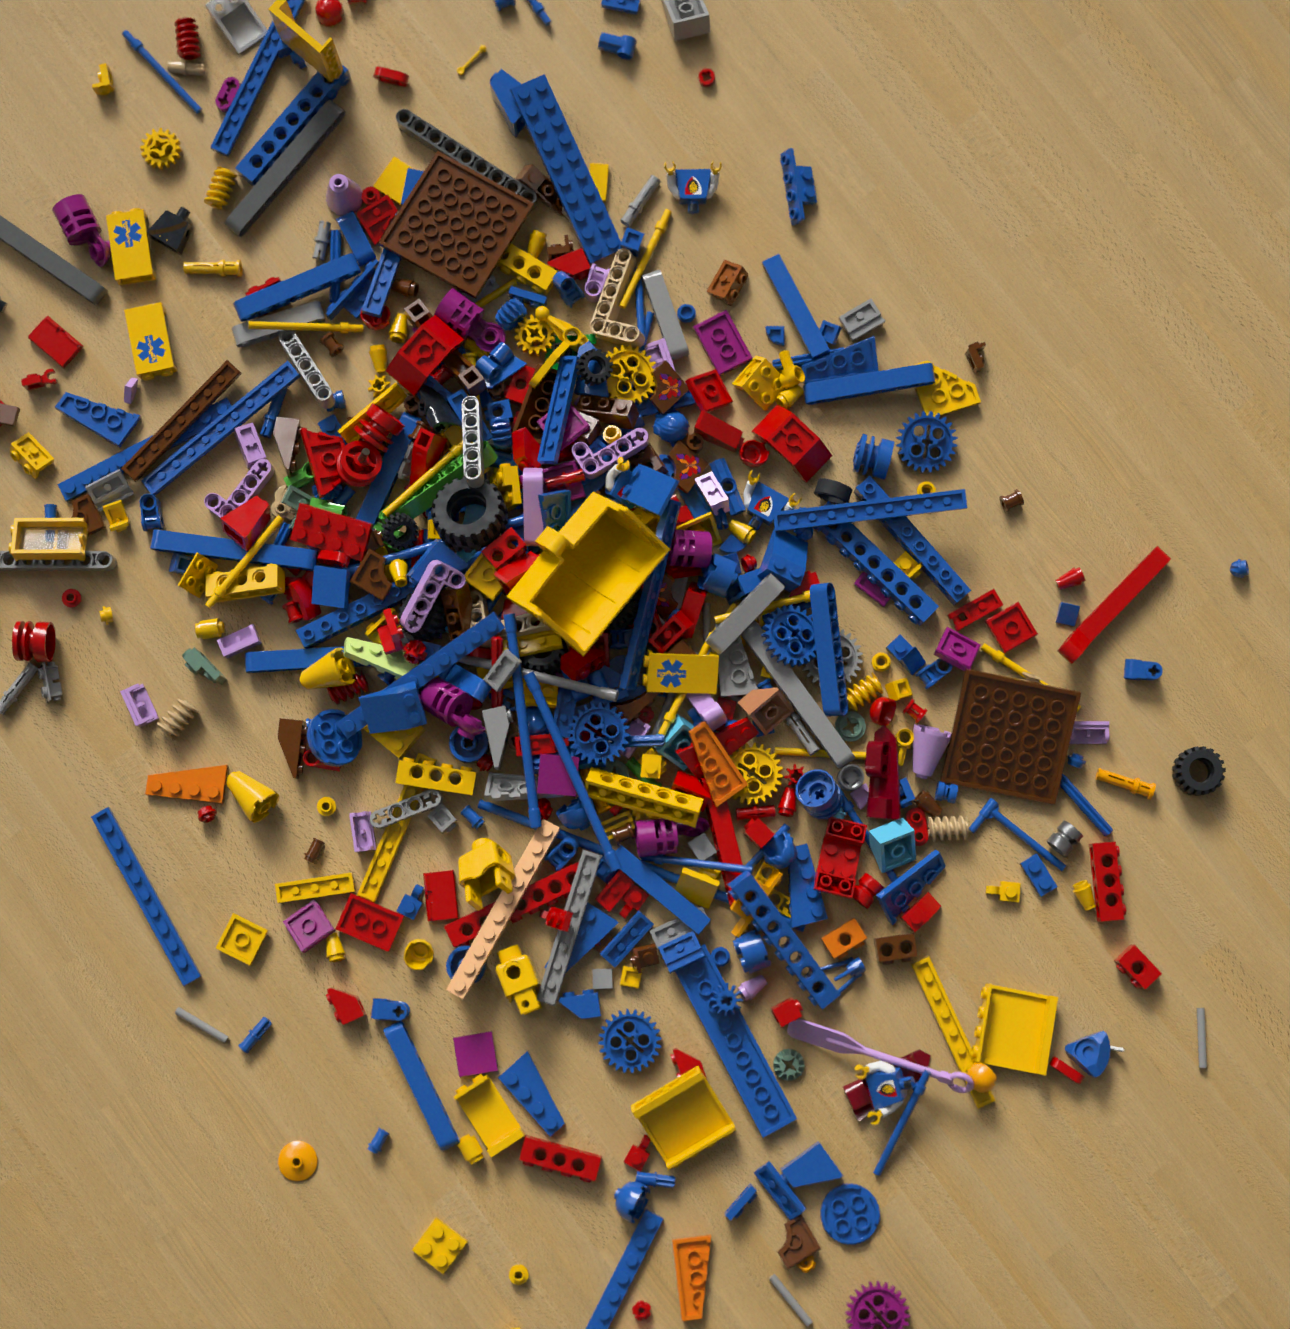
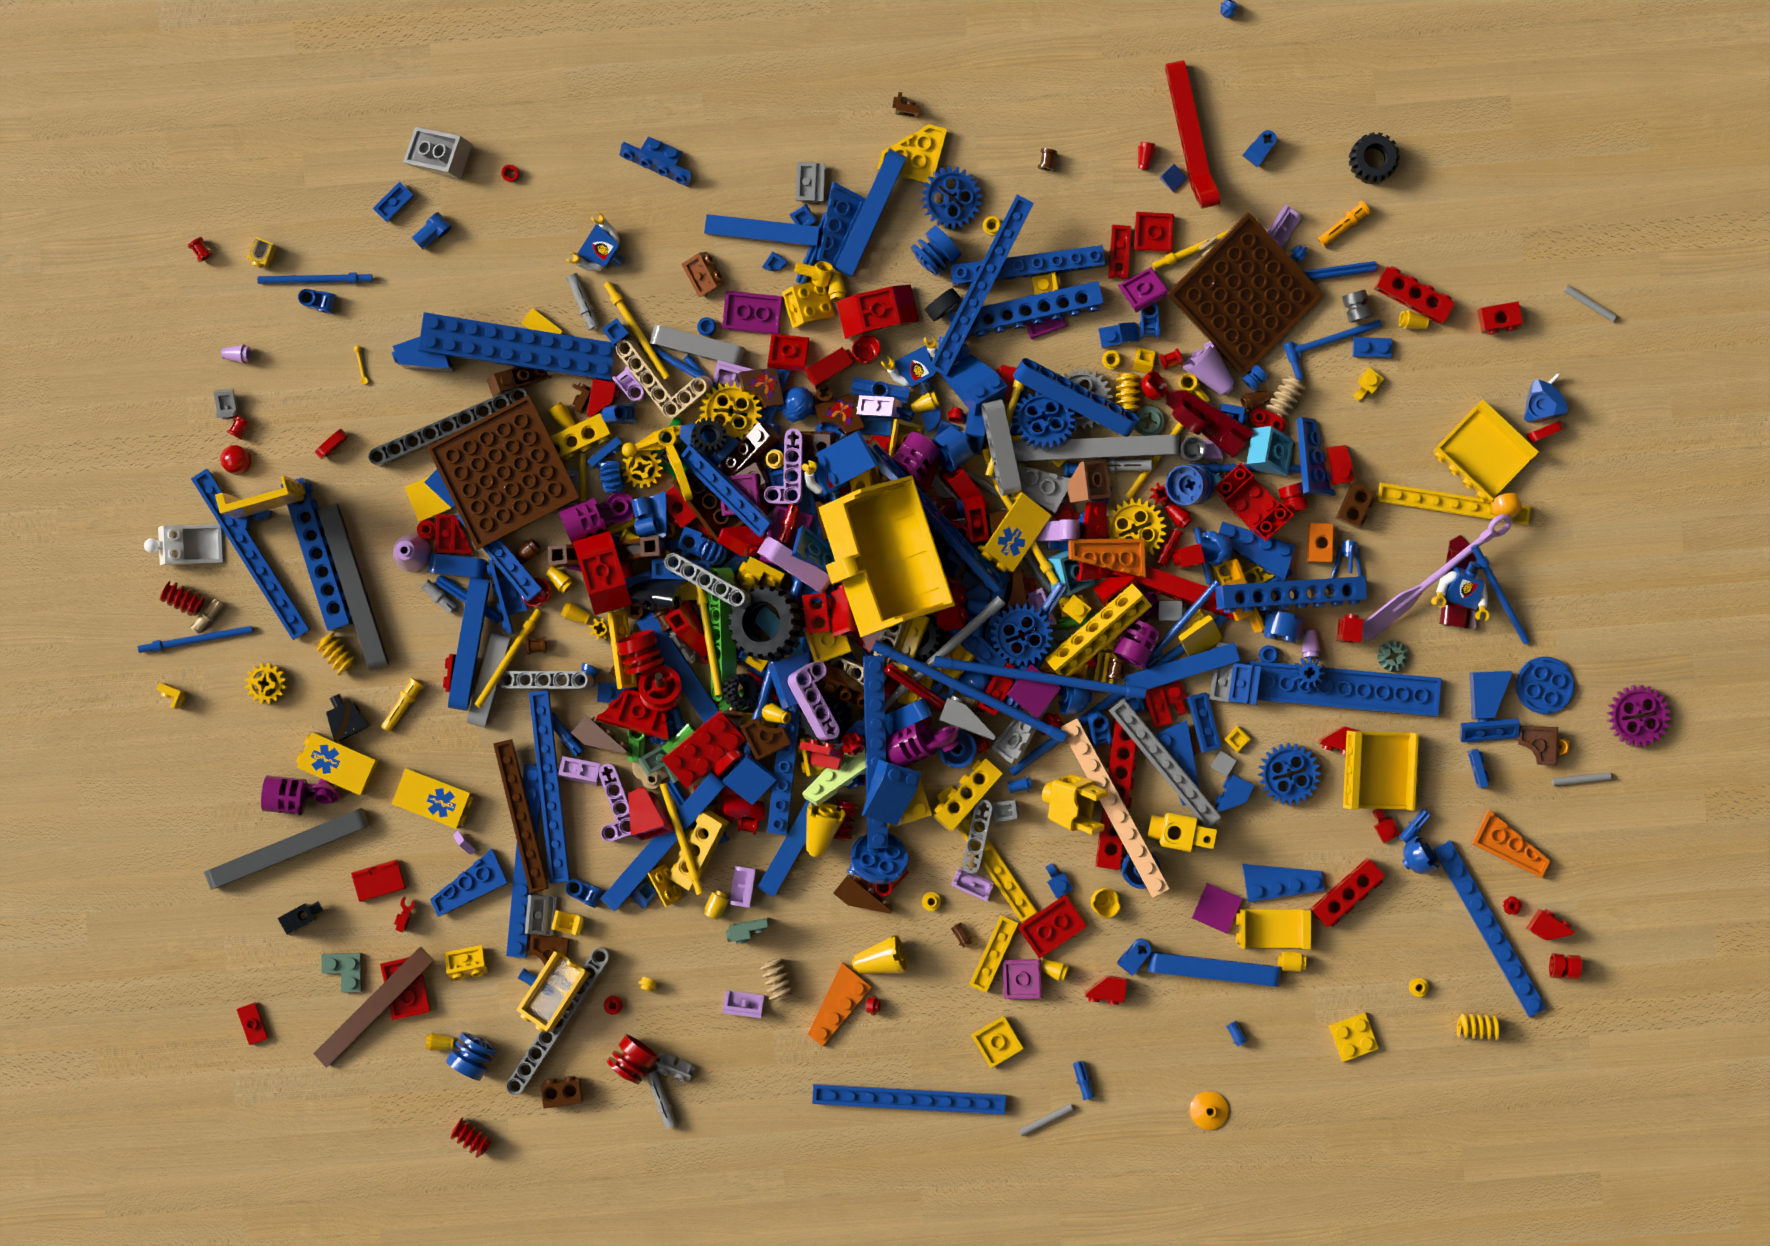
camera: 55 degrees left, 5 degrees up
(224, 93) = (250, 597): magenta beam -> none
(440, 895) = (1067, 853): red piece -> none
(502, 670) = (918, 681): light grey plate -> none
(557, 918) = (1151, 768): red hinge -> none
(644, 957) = (1228, 717): reddish brown bracket -> none

